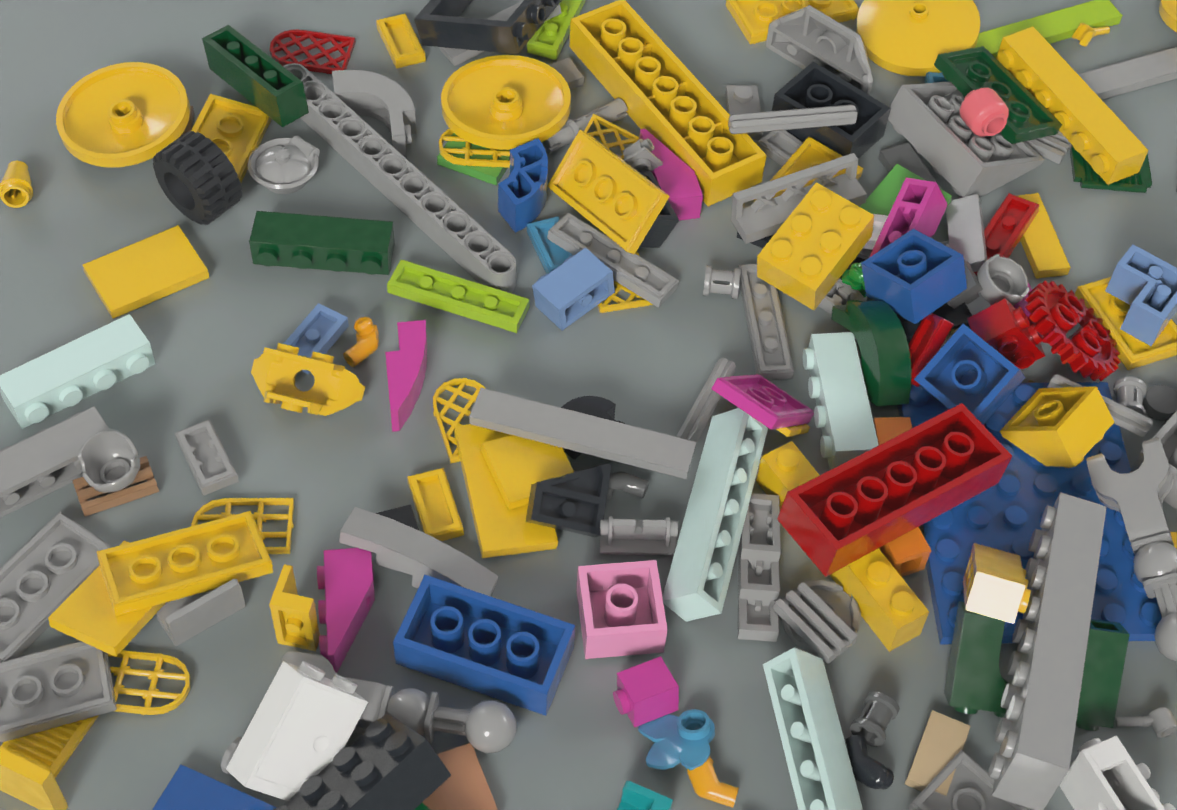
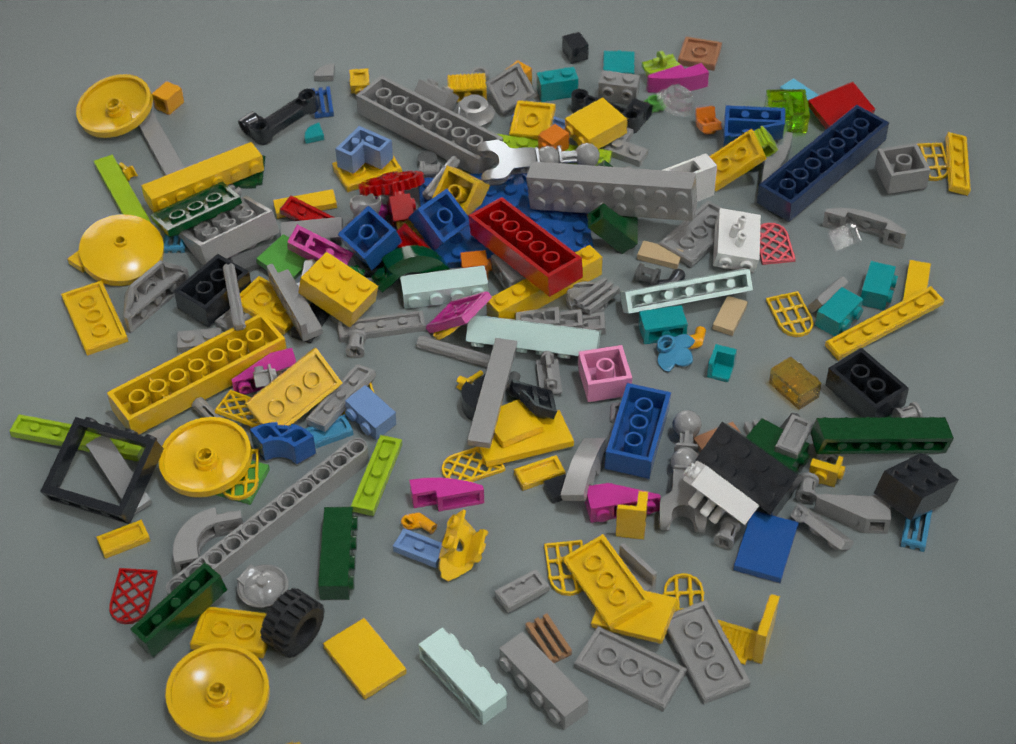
camera: 90 degrees left, 5 degrees down
(109, 461) = (544, 628): light grey hair -> none
(633, 415) = (461, 380): none -> yellow hand
(646, 692) = (651, 362): dark pink brick -> none
(744, 726) = (661, 322): none -> teal brick
(984, 112) = (226, 207): coral head -> none
(995, 584) = (578, 211): brick -> none

